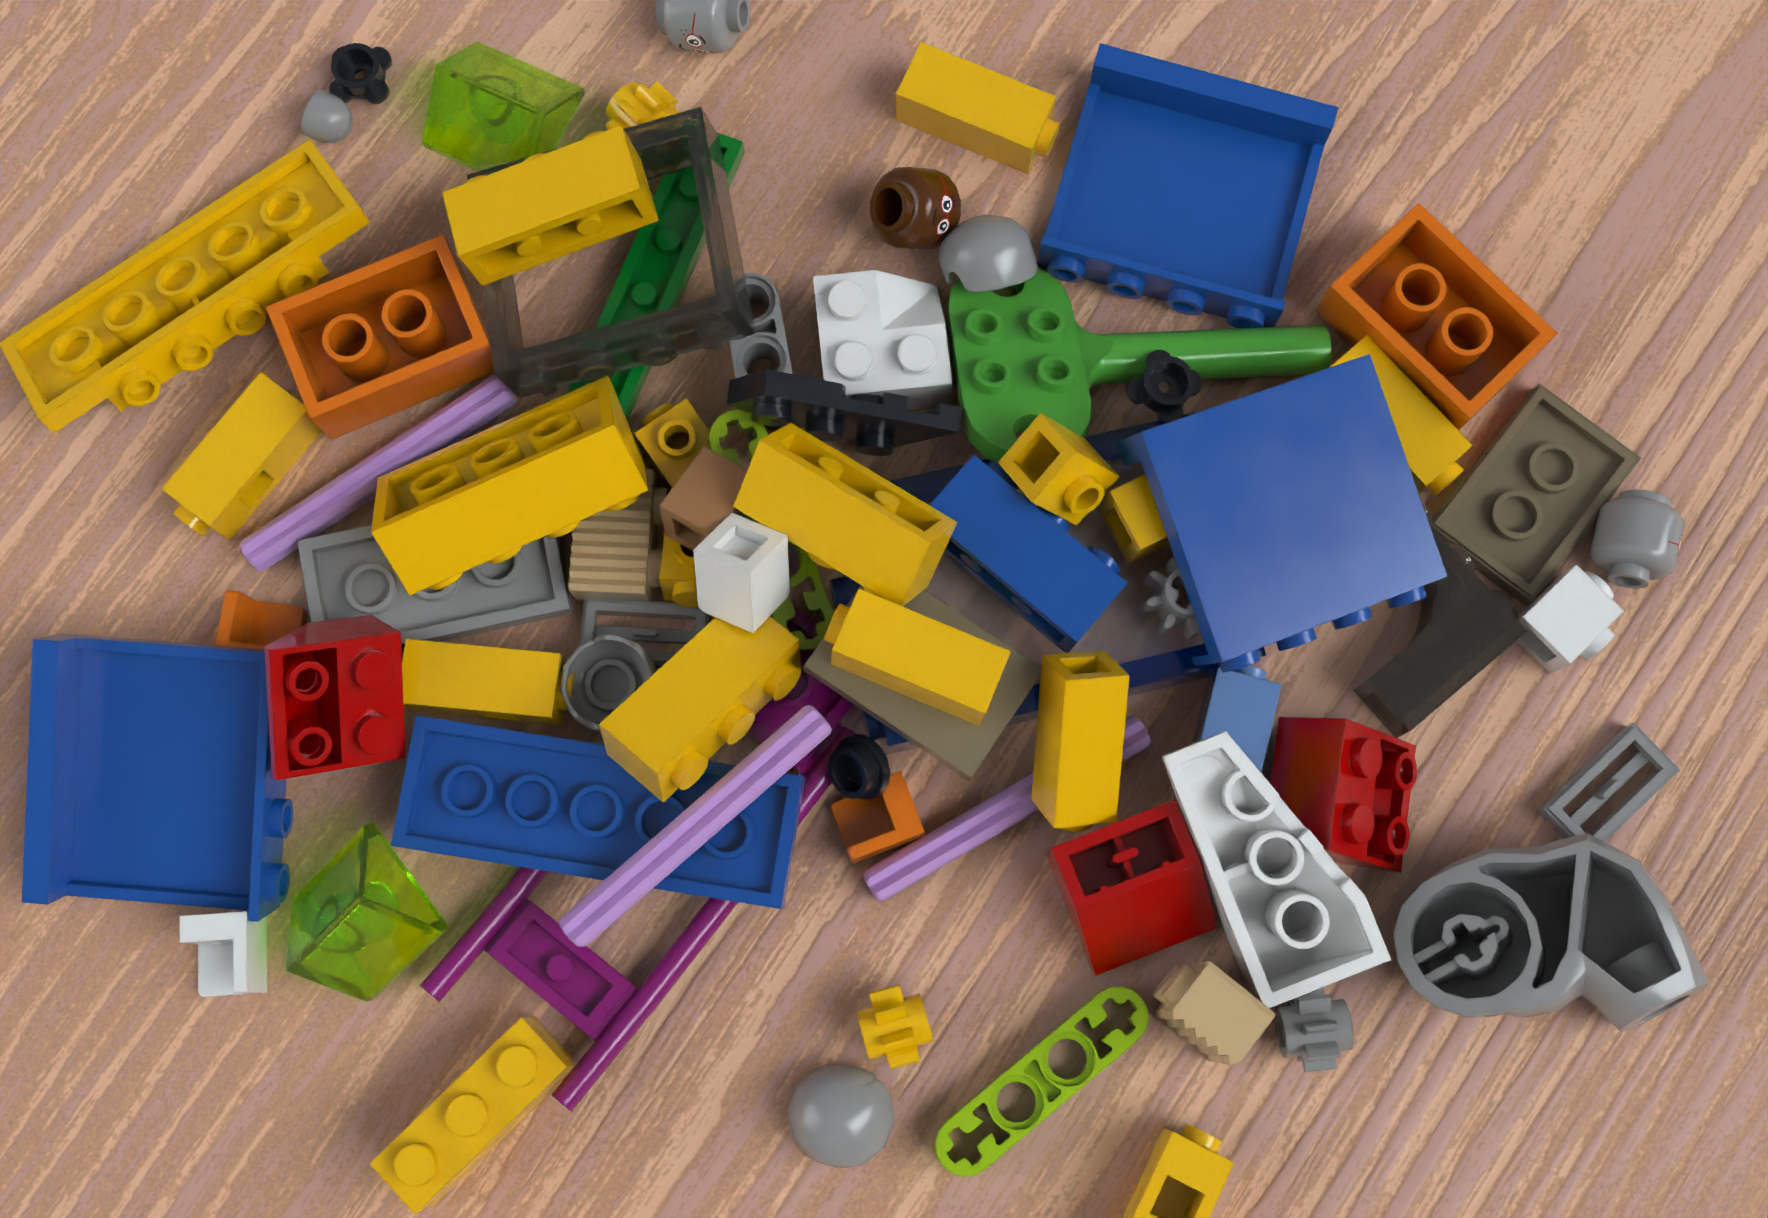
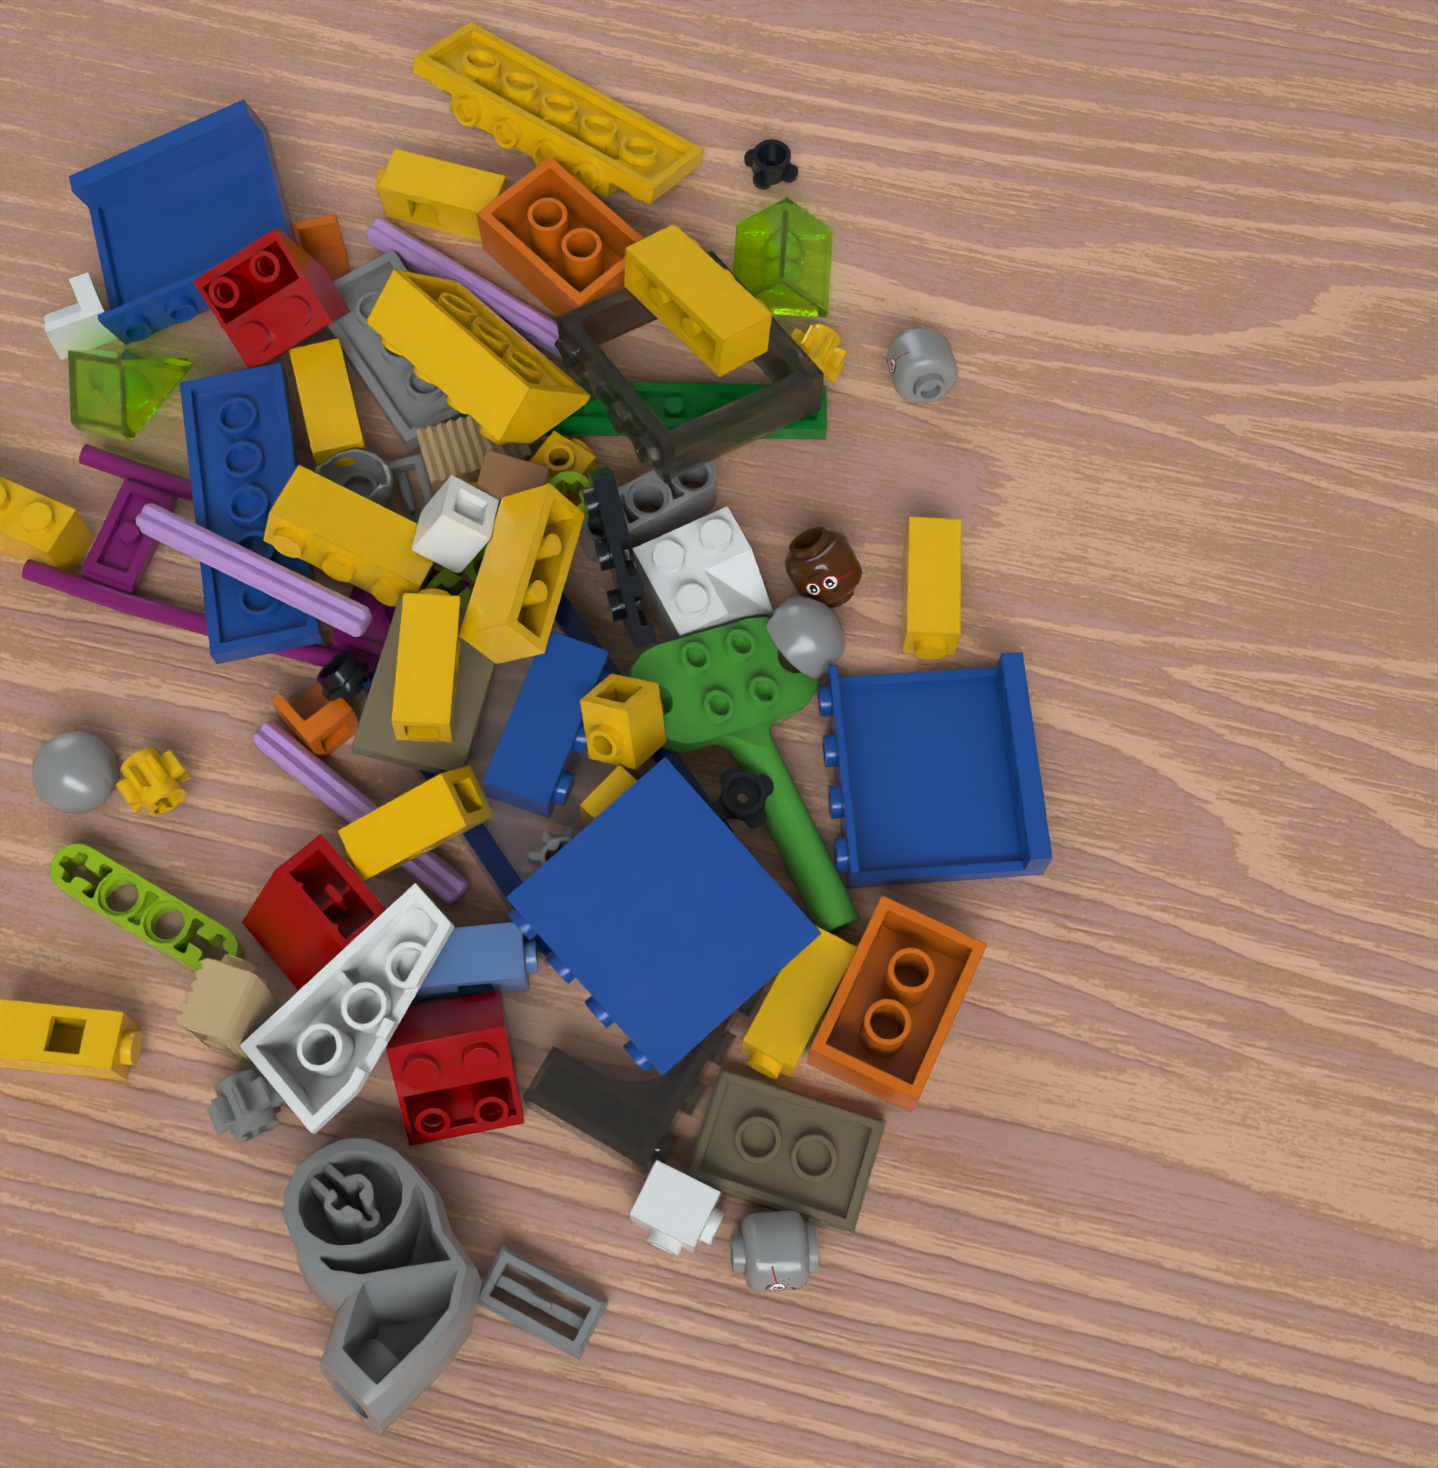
camera: 65 degrees right, 10 degrees down
(326, 118) = (725, 154): light grey hinge -> none

